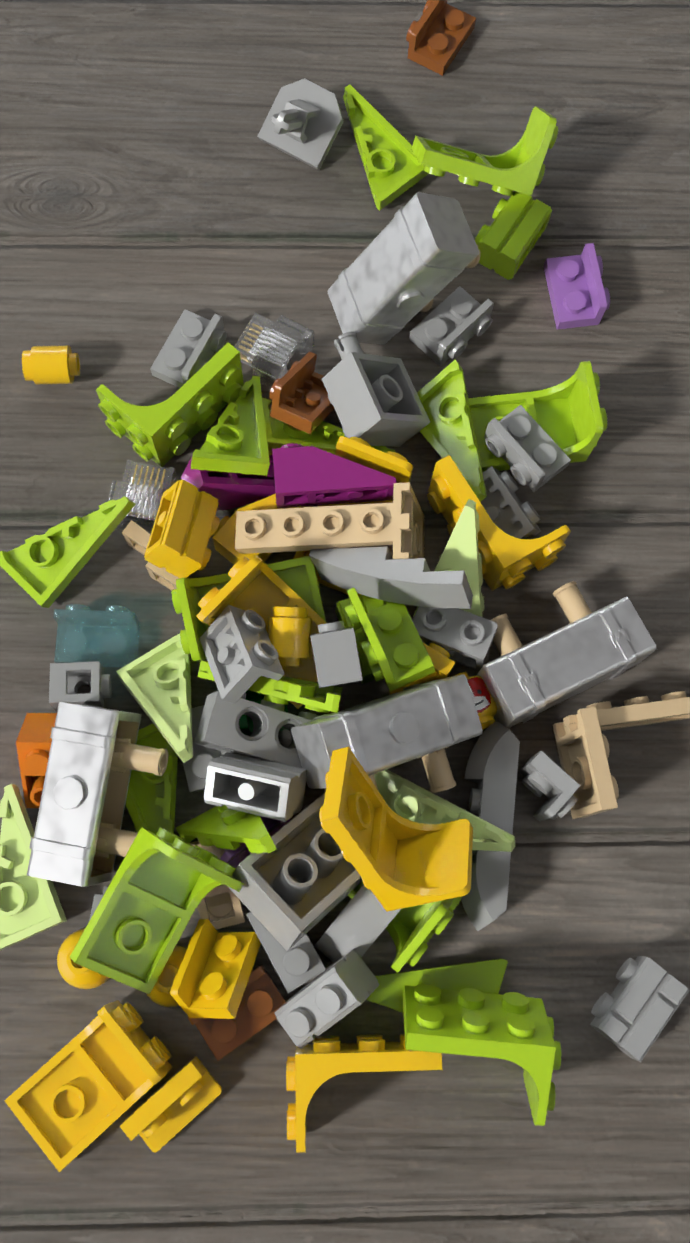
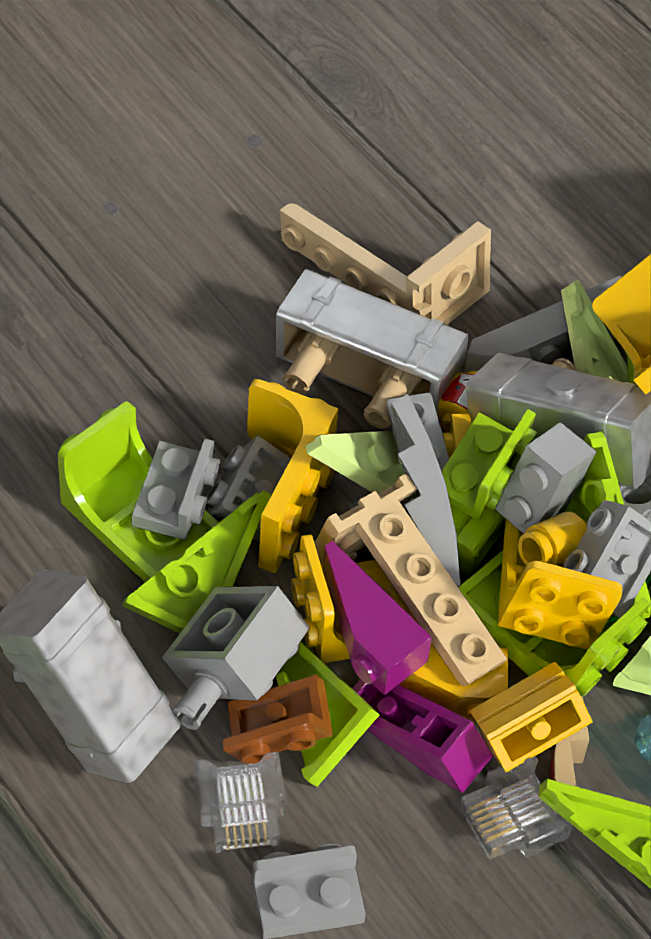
camera: 125 degrees left, 20 degrees down
(169, 426) = (398, 815): lime bracket -> none
(239, 438) = (390, 733): lime wing -> none
(547, 778) = (496, 293): light grey bracket -> none
(638, 1006) = (601, 166): light grey brick -> none

